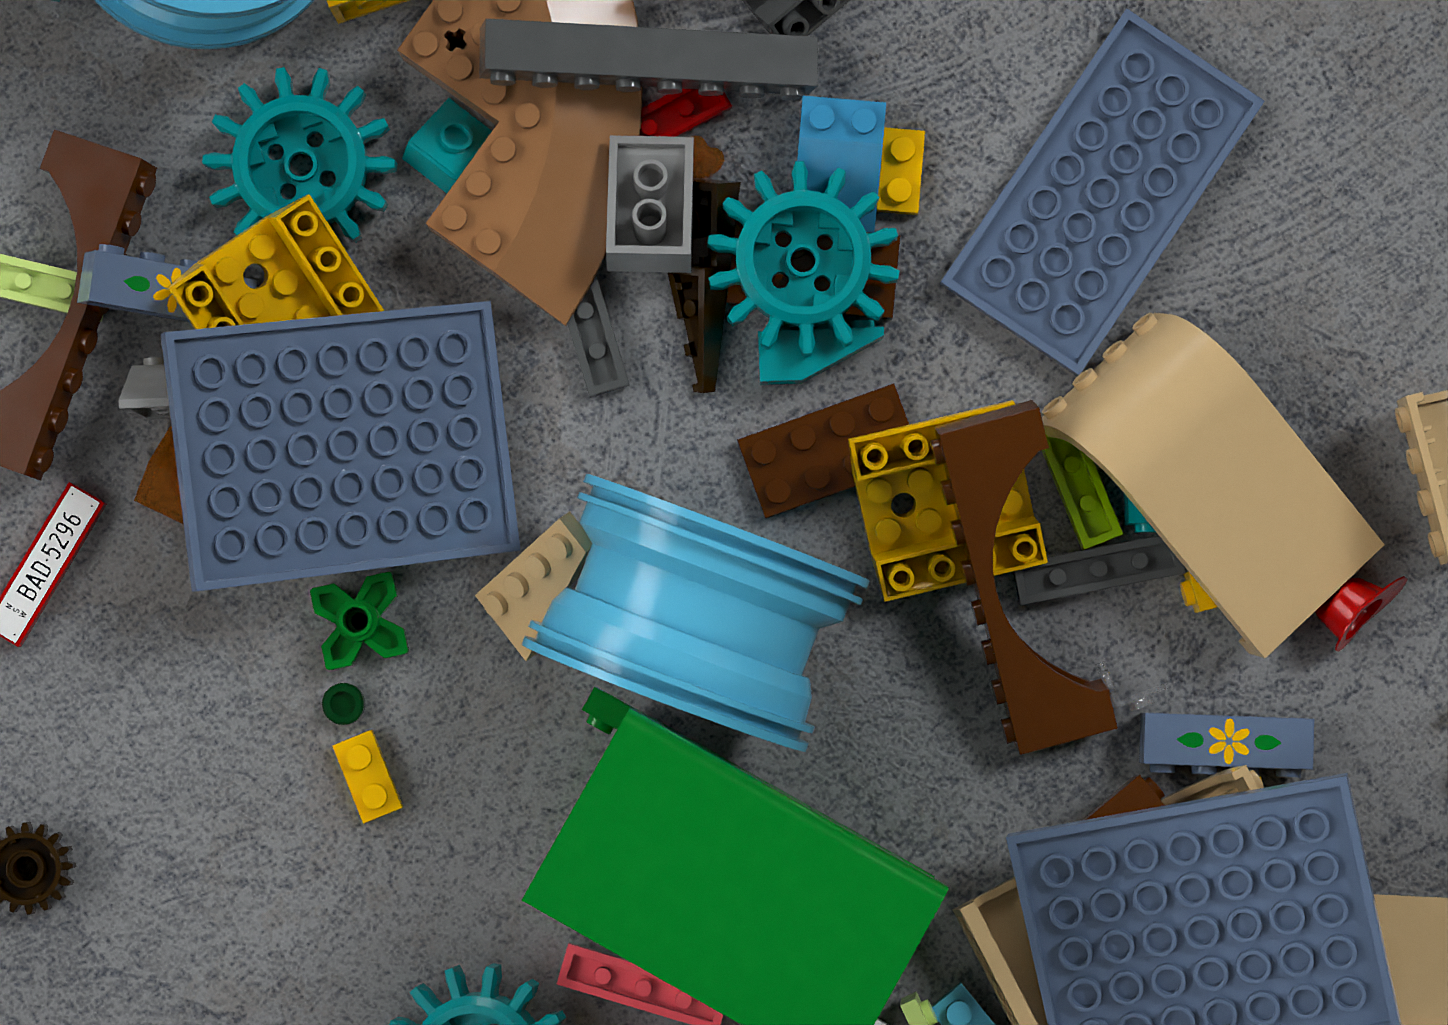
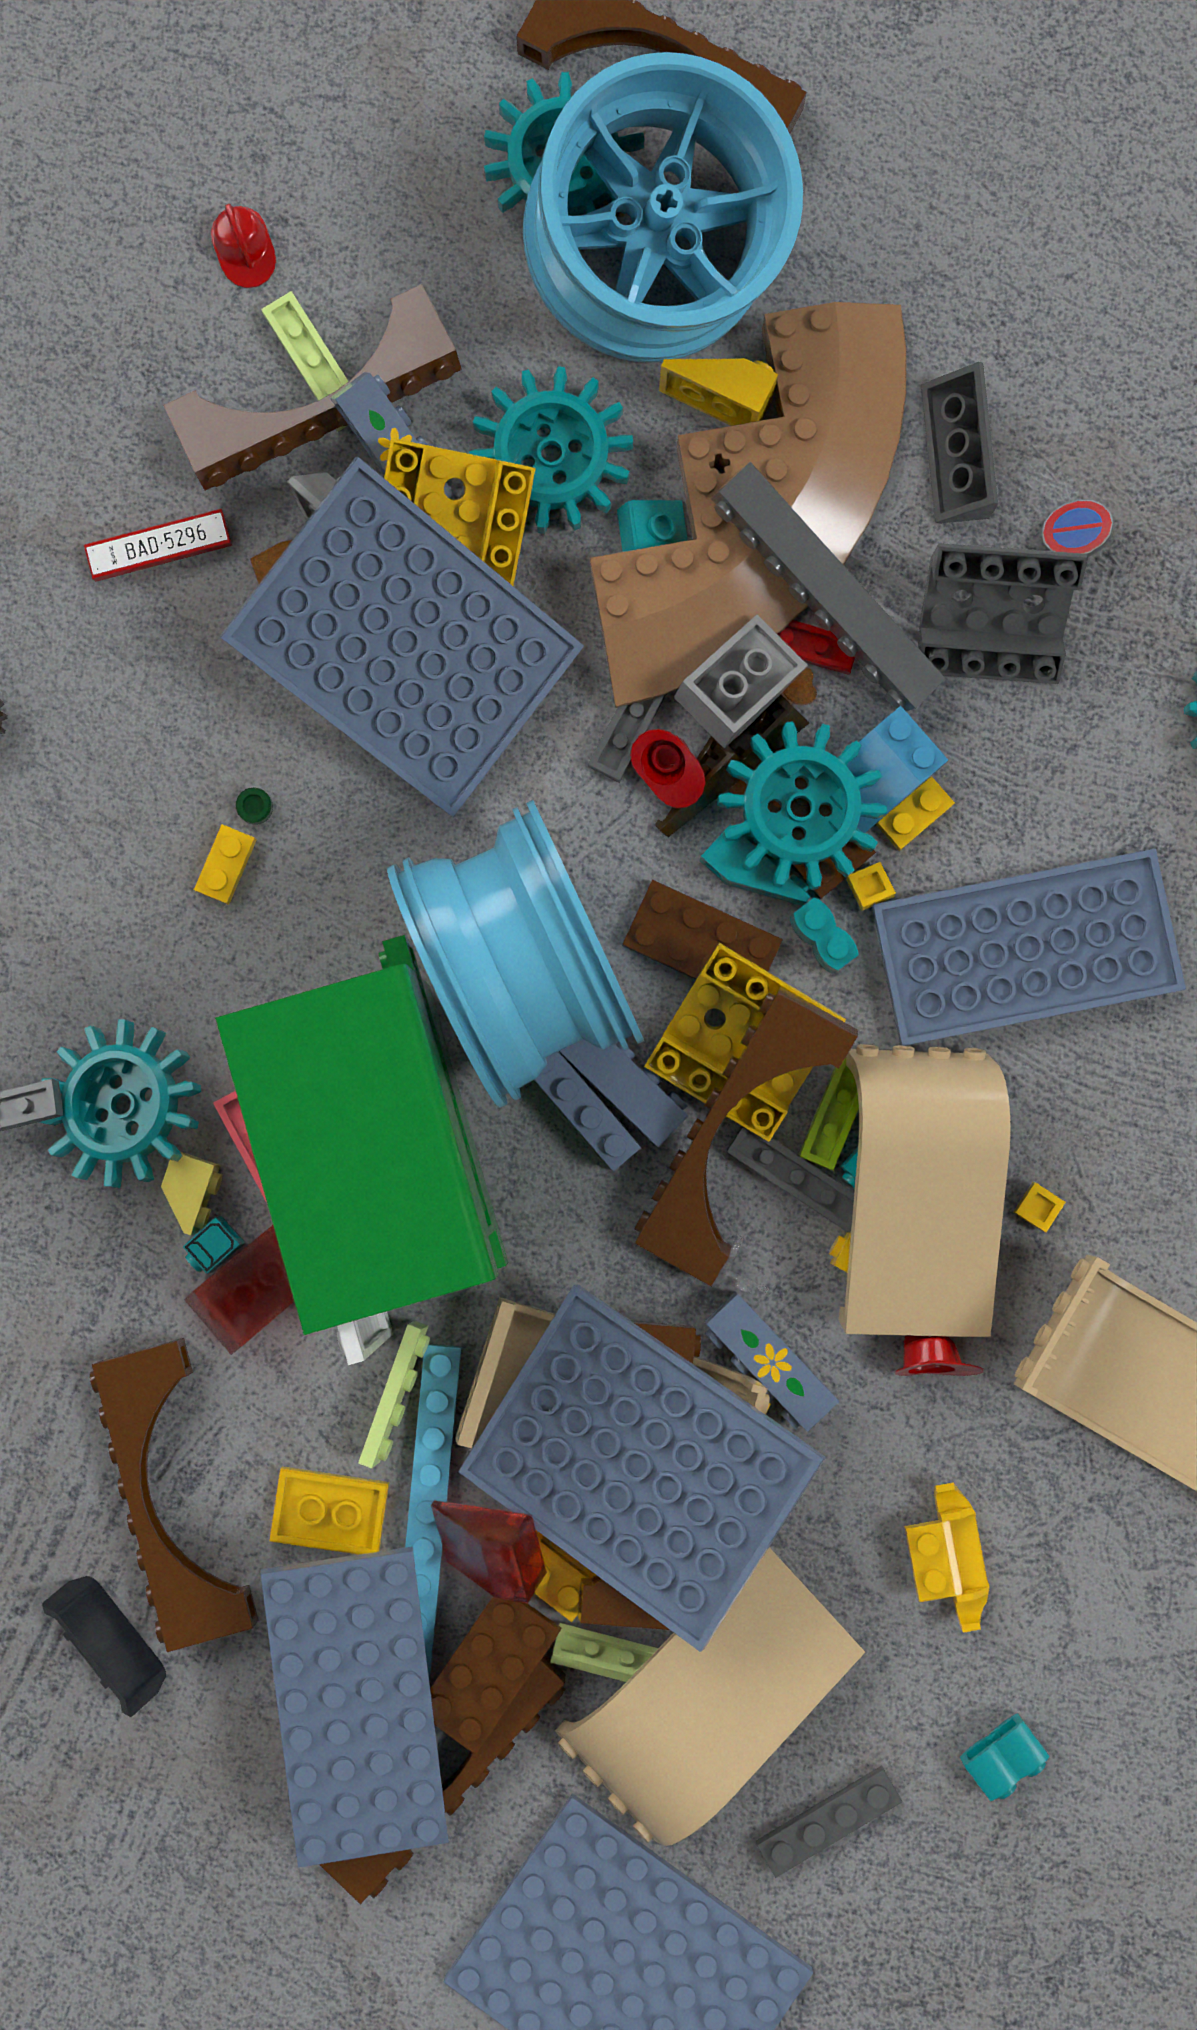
camera: 45 degrees right, 0 degrees up
(340, 608) = (293, 768): green plant -> none
(534, 579) = (444, 837): tan wing -> none
(661, 334) = (668, 767): none -> red piece
(877, 686) = (586, 1111): none -> sand blue brick
(894, 631) = (629, 1088): none -> sand blue brick
(923, 268) = (870, 886): none -> yellow plate
(938, 349) = (818, 928): none -> teal brick
(1320, 398) = (1039, 1207): none -> yellow plate

